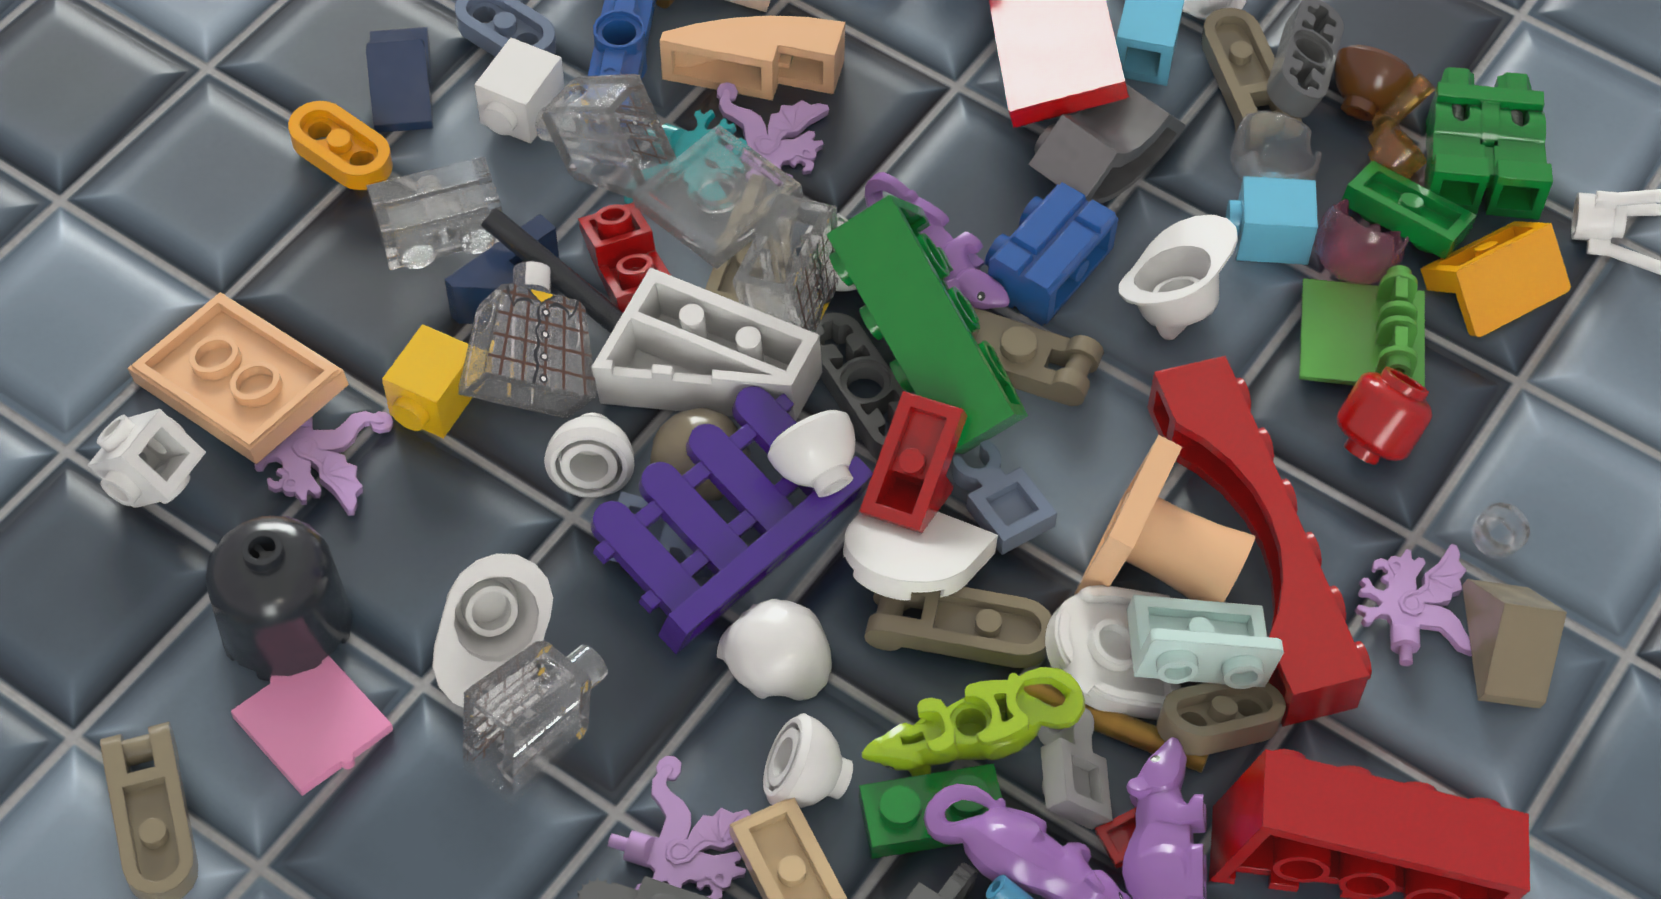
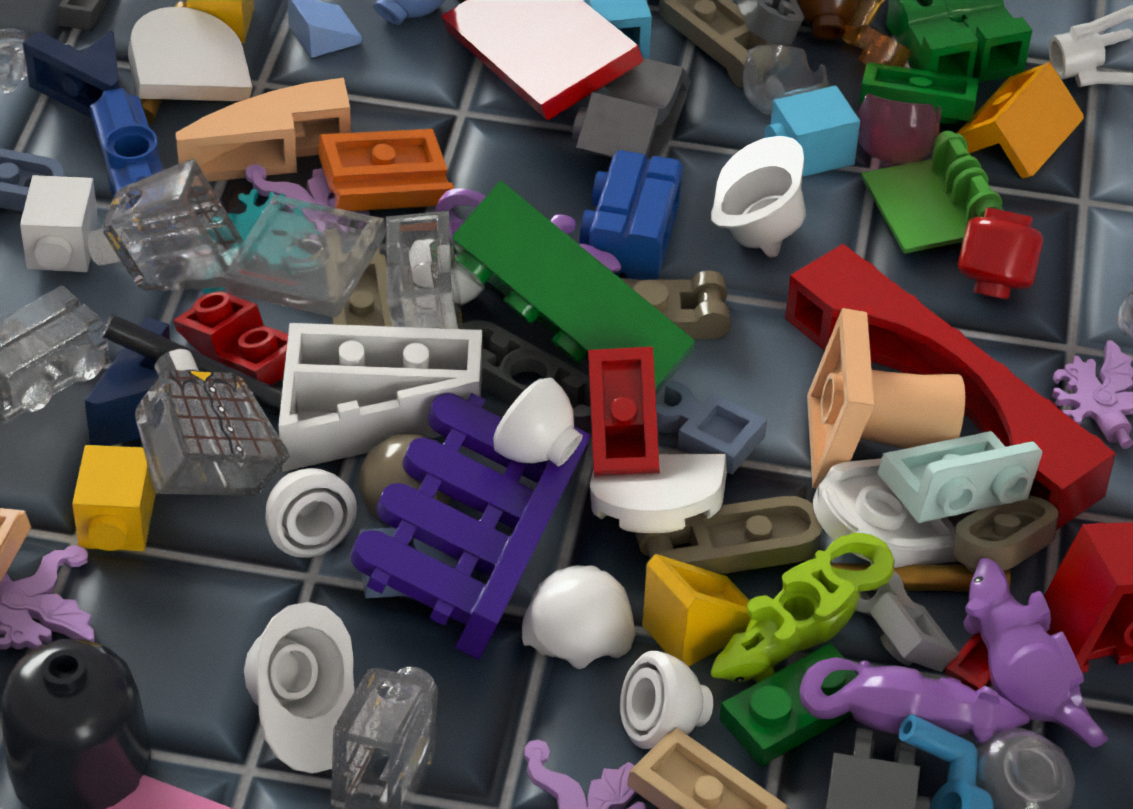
camera: 25 degrees left, 10 degrees down
(842, 127) = (384, 169): none -> orange plate
(886, 679) = (691, 609): none -> yellow slope

